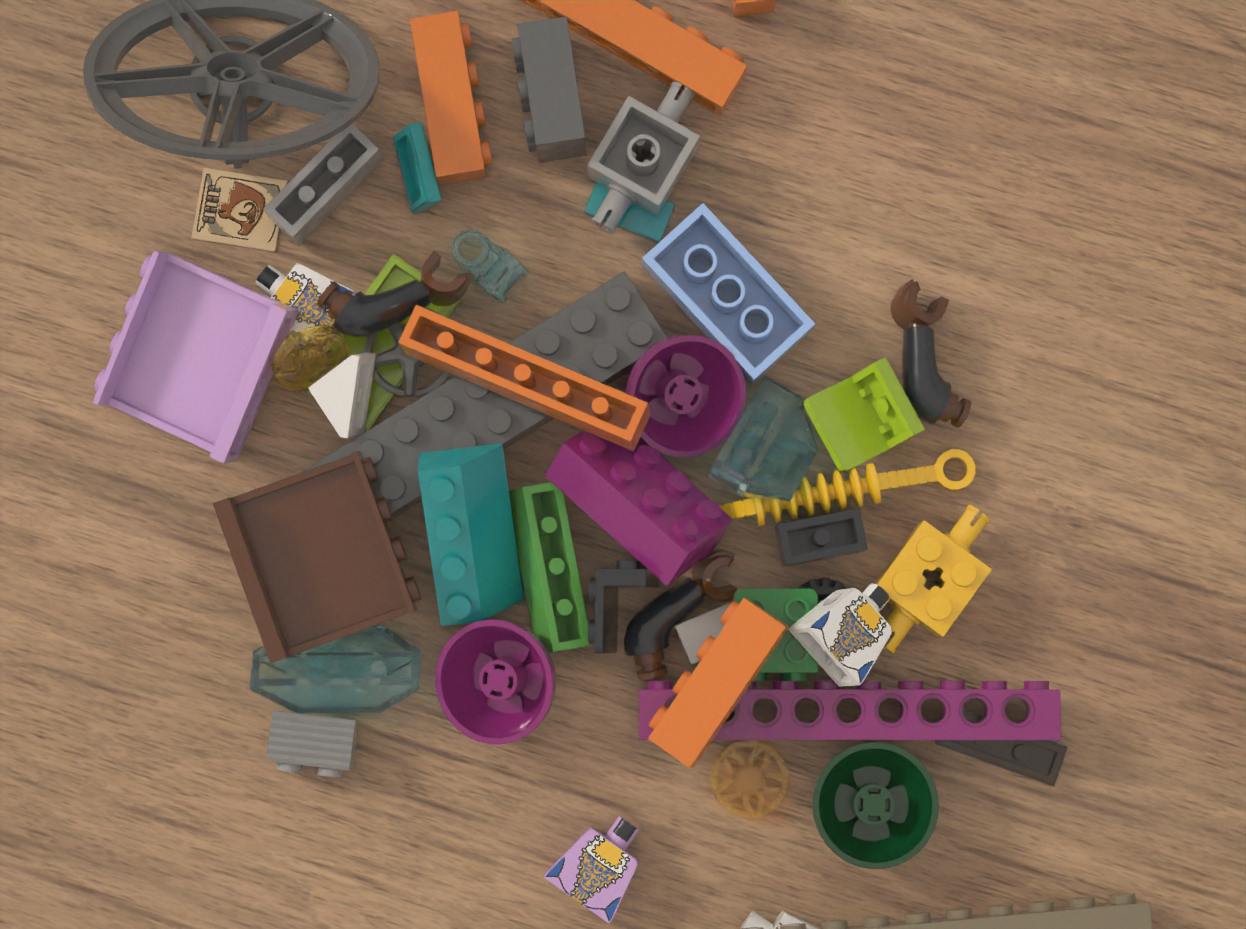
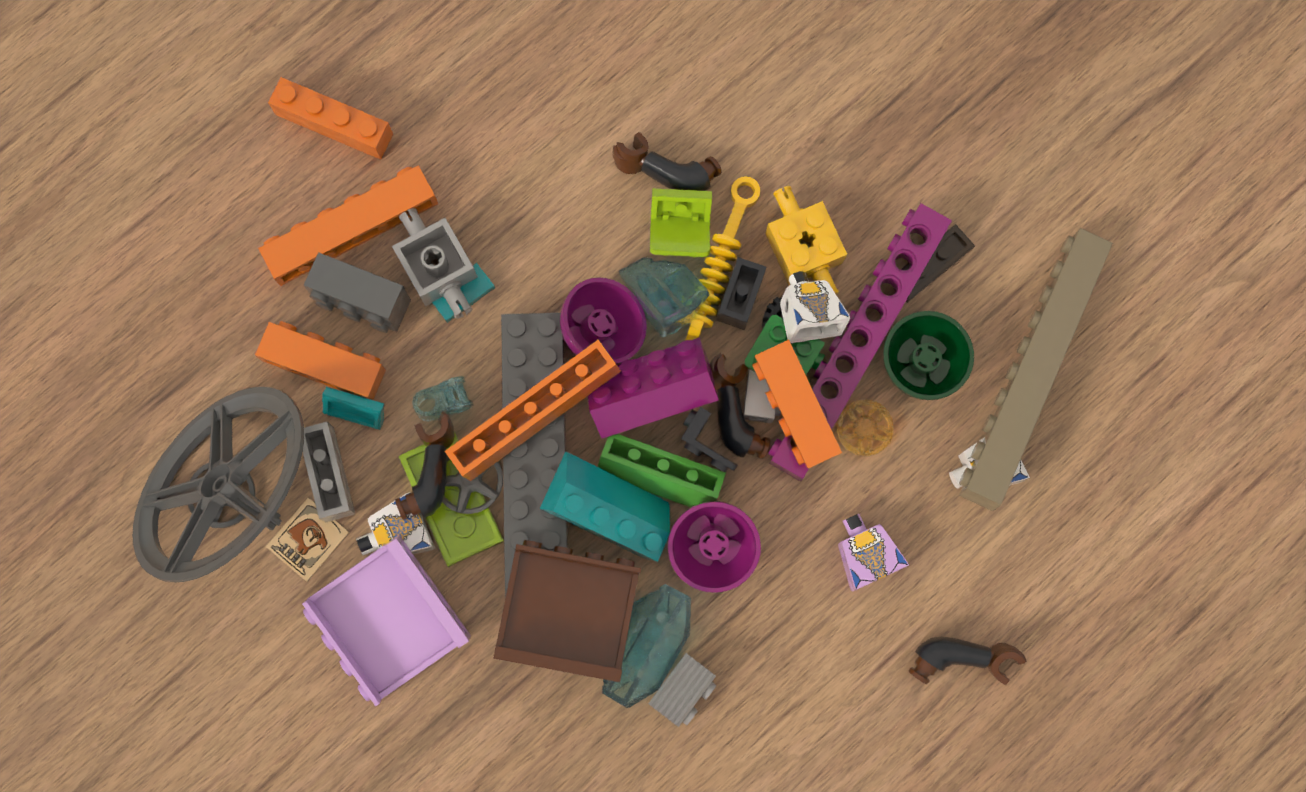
camera: 65 degrees left, 5 degrees down
(309, 358) = (434, 545): clear yellow wheel -> none
(346, 394) = (471, 536): white slope -> none
(727, 293) = (552, 260): light blue brick -> none

